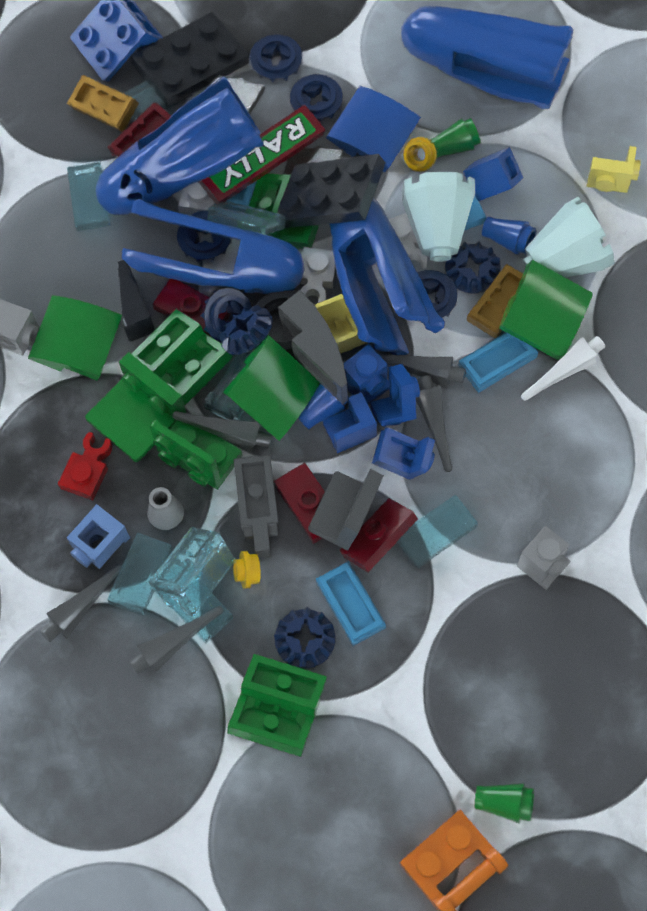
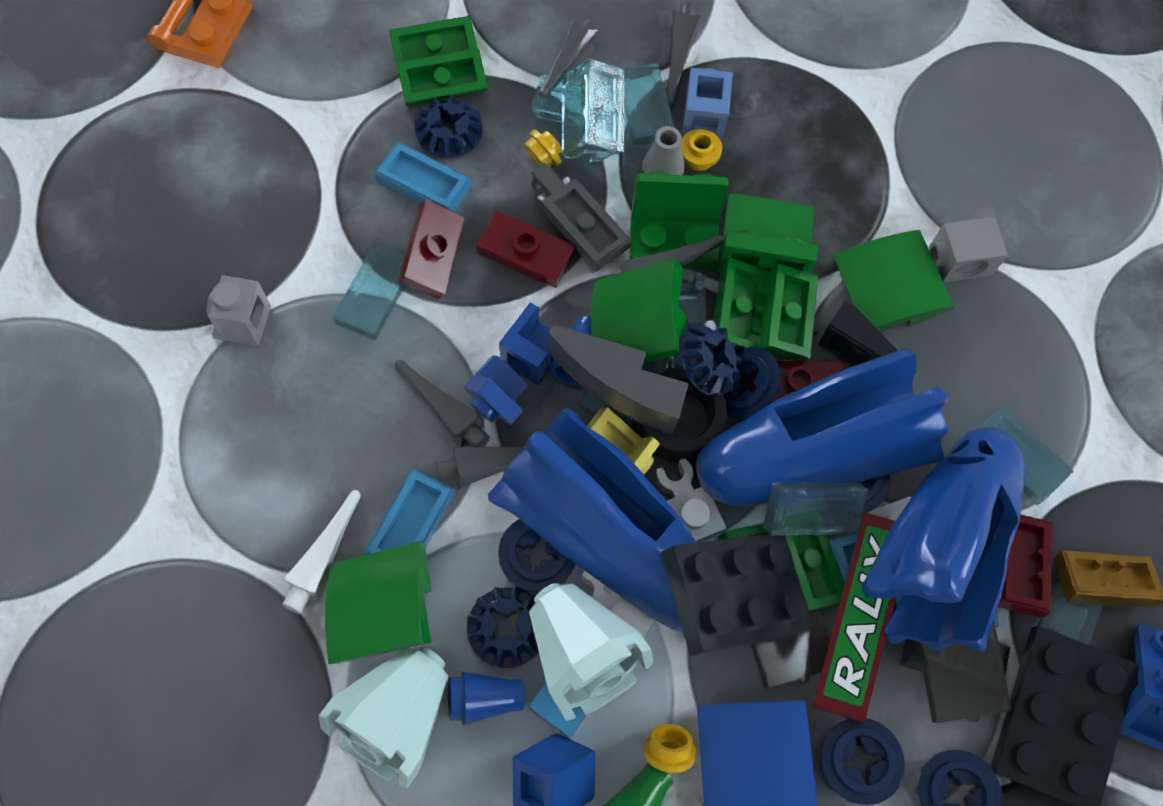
camera: 140 degrees right, 0 degrees up
(86, 472) = (772, 162): red plate -> none
(131, 518) = (698, 158): none -> yellow plate
(344, 508) = (480, 250): dark grey panel -> none
(366, 374) = (546, 398): blue brick -> none
(403, 454) = (453, 342): blue bracket -> none
(493, 303) = (448, 603): pearl gold plate -> none
(506, 801) = (172, 83): green cone -> none

